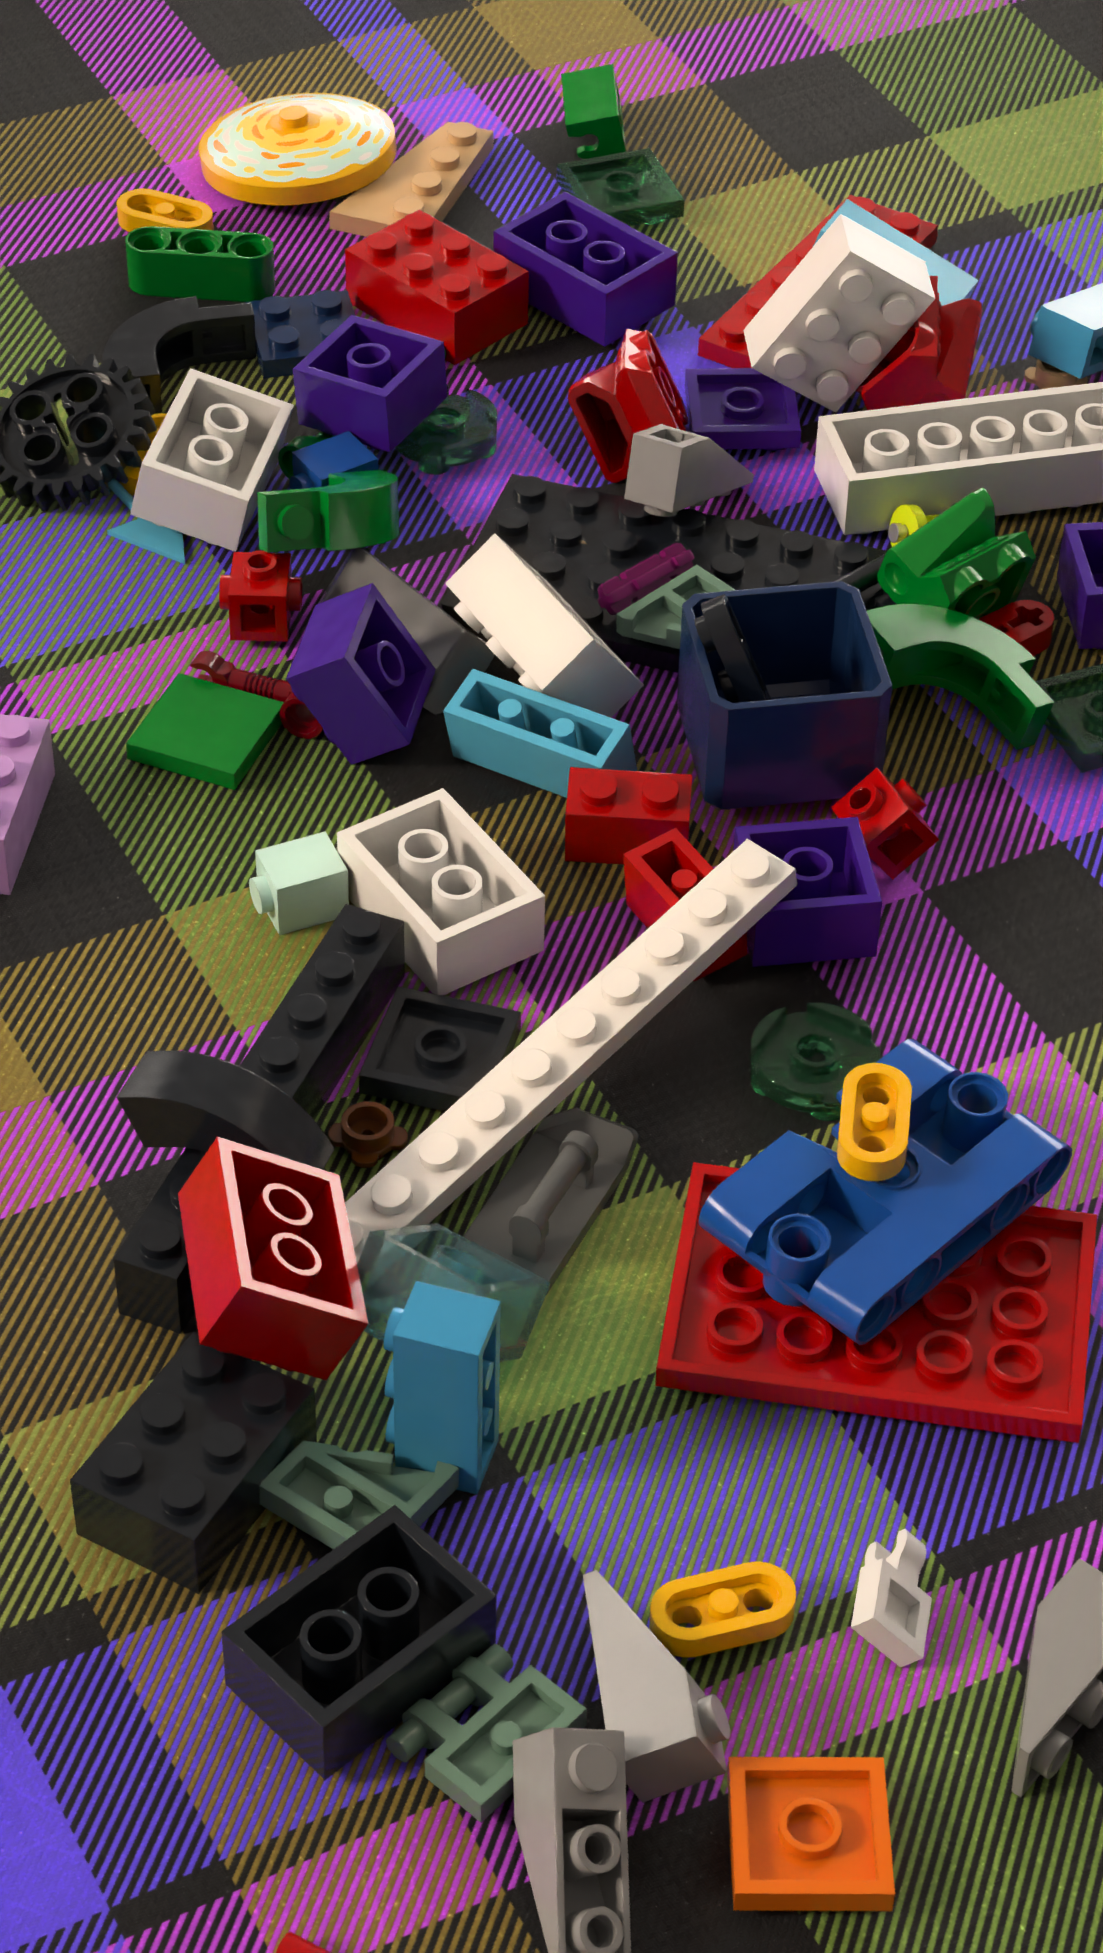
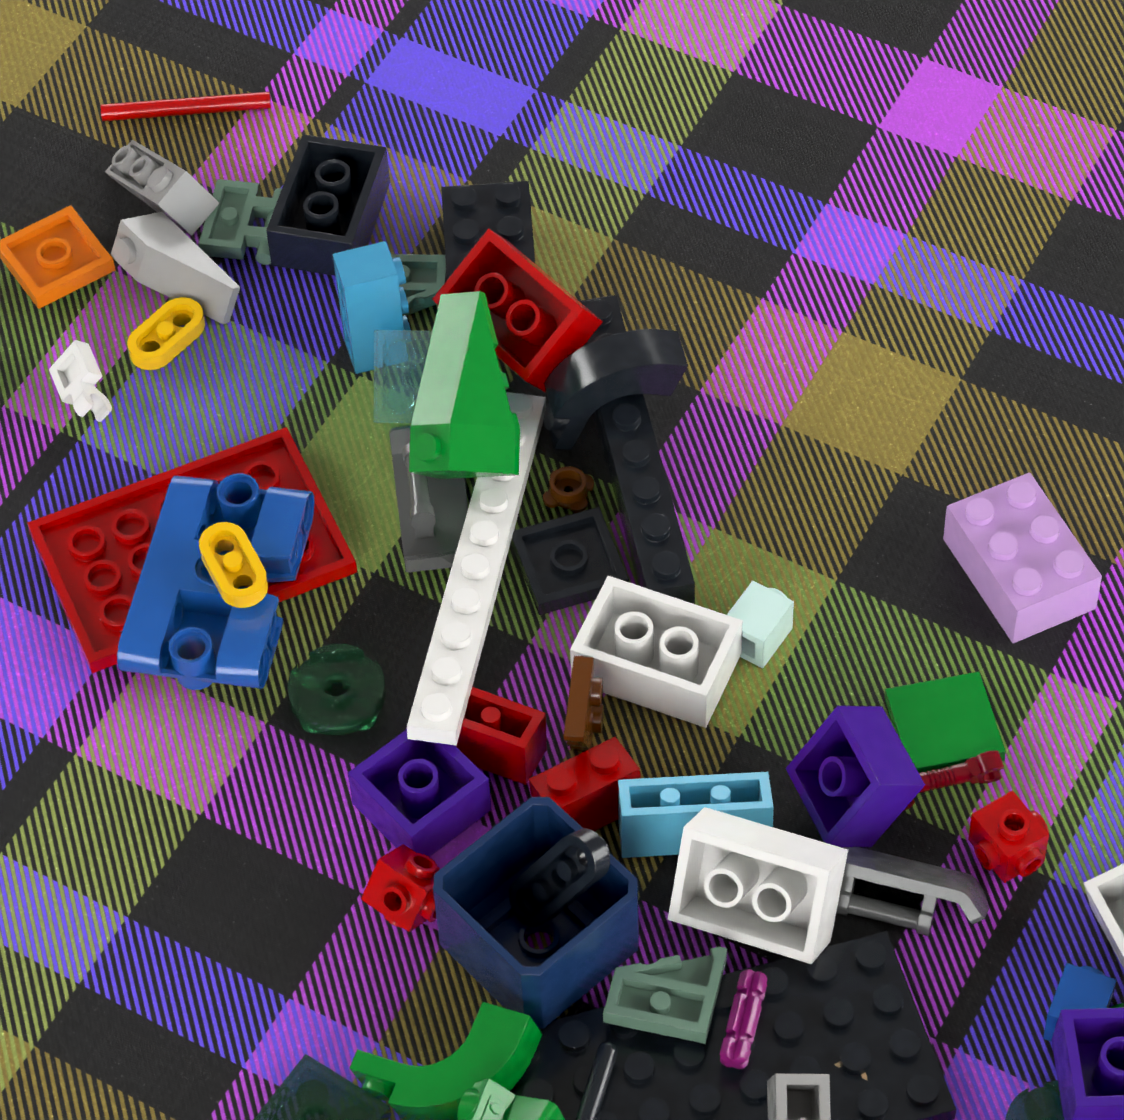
camera: 150 degrees right, 10 degrees up
(347, 514) = (992, 927): green arch -> none
(444, 1163) = (462, 406): none -> green wedge
(577, 854) = (584, 705): none -> reddish brown wing

